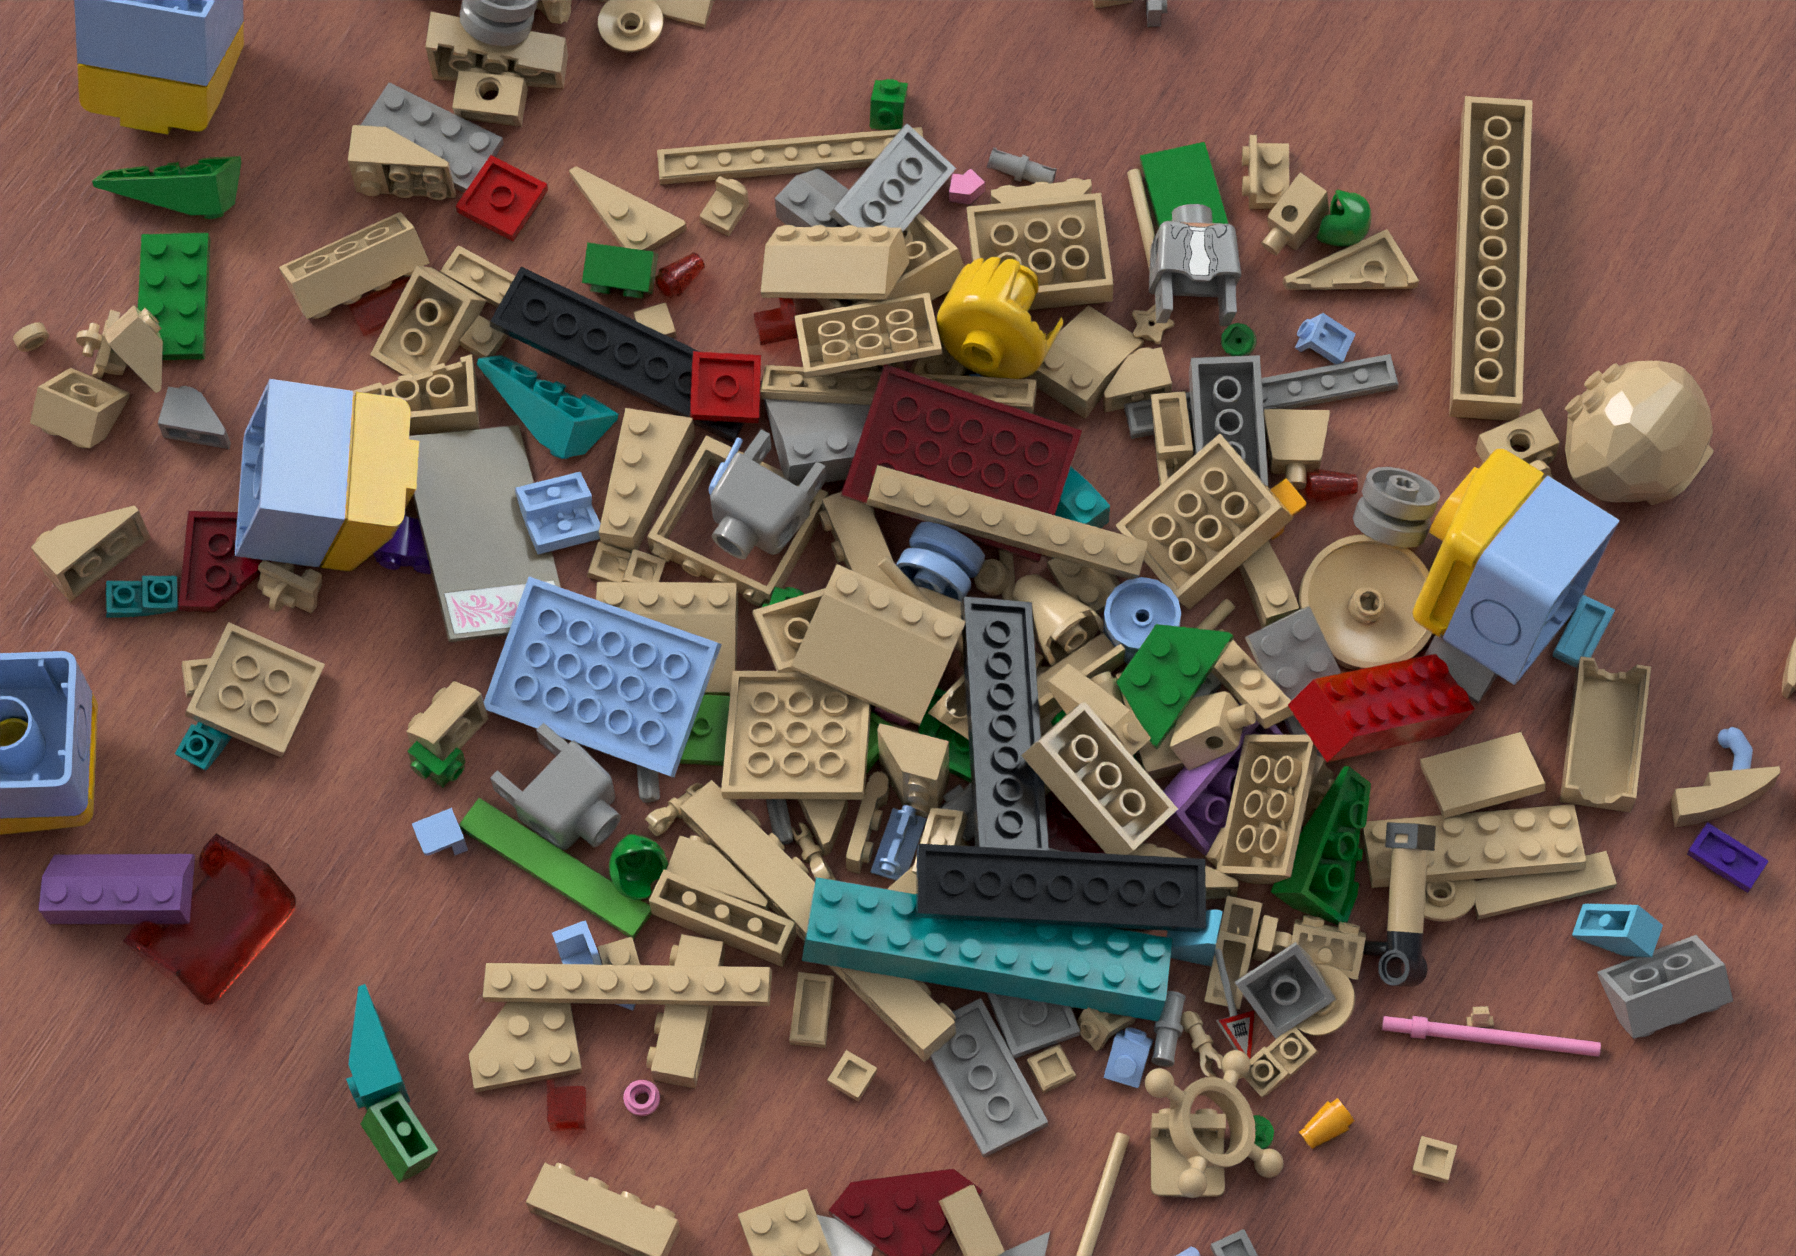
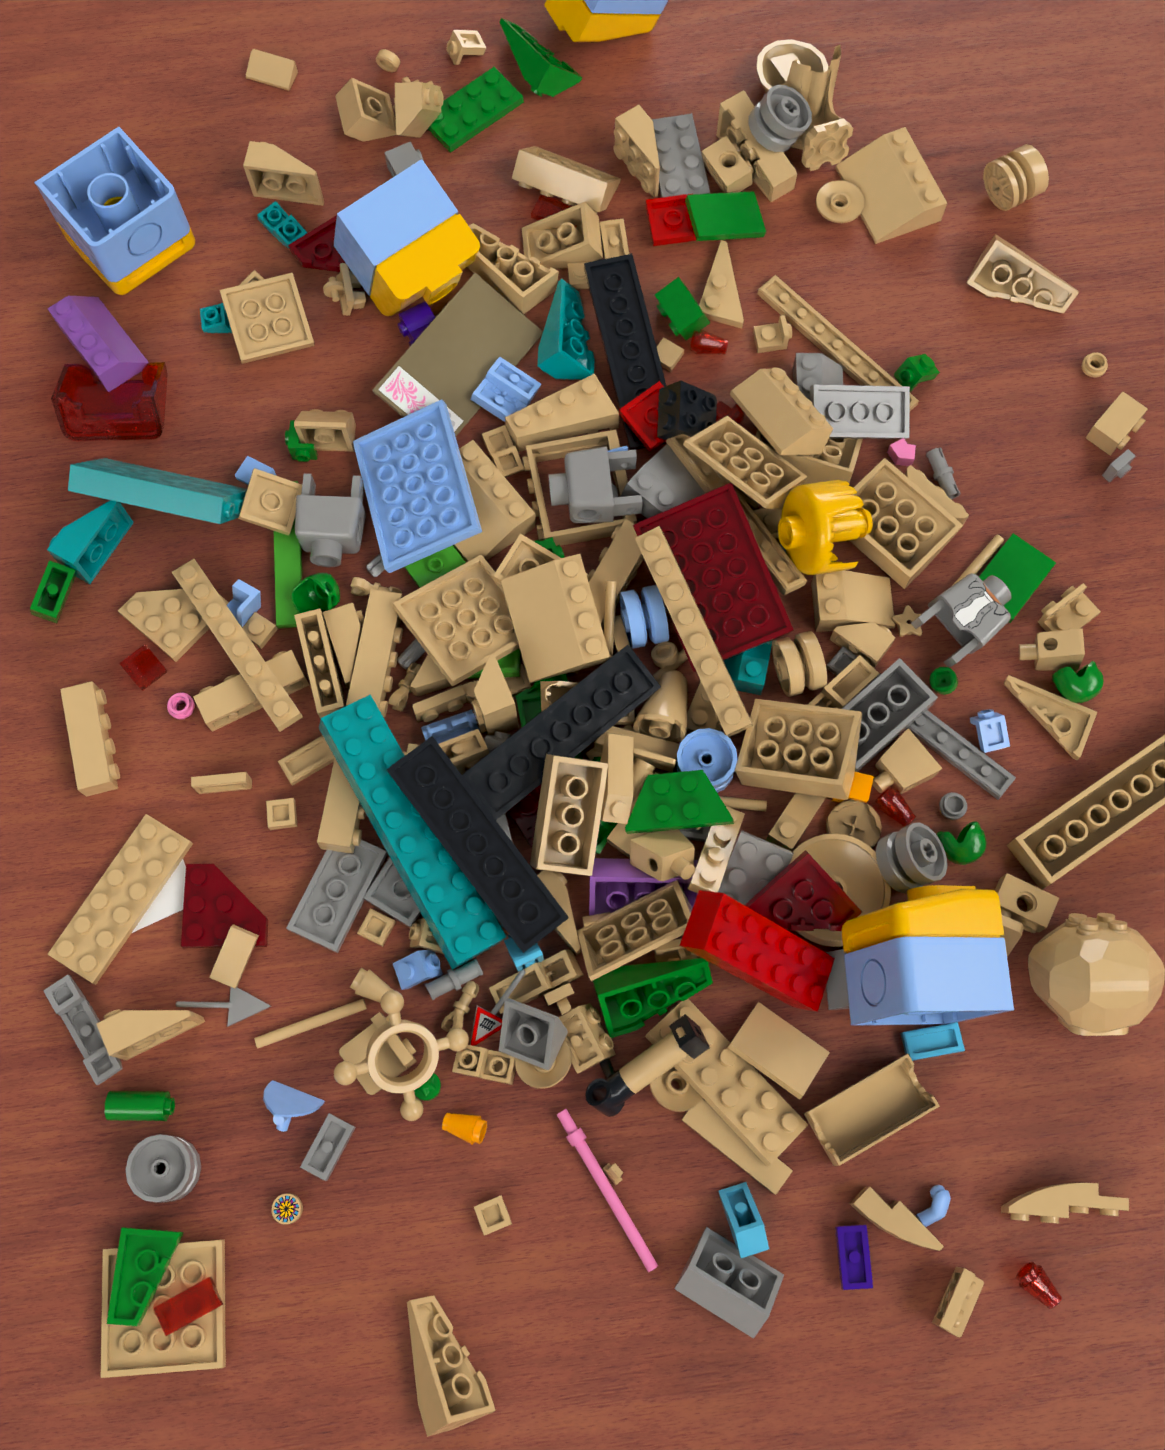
camera: 50 degrees right, 5 degrees up
(85, 243) = (465, 43): none -> tan bracket
(385, 935) = (157, 490): none -> teal brick
(491, 836) = (270, 502): none -> tan plate
(546, 144) = (725, 216): none -> green tile
(753, 353) = (684, 410): none -> black bracket
(768, 1112) = (221, 782): none -> tan tile
(1111, 1114) = (369, 985): none -> tan cone
(1114, 455) = (799, 663): none -> tan wheel
(1311, 533) = (855, 820): none -> tan tile
(1361, 626) = (804, 898): none -> dark red plate
(1371, 432) = (953, 806): none -> light grey plate
(1421, 448) = (968, 846): none -> green helmet

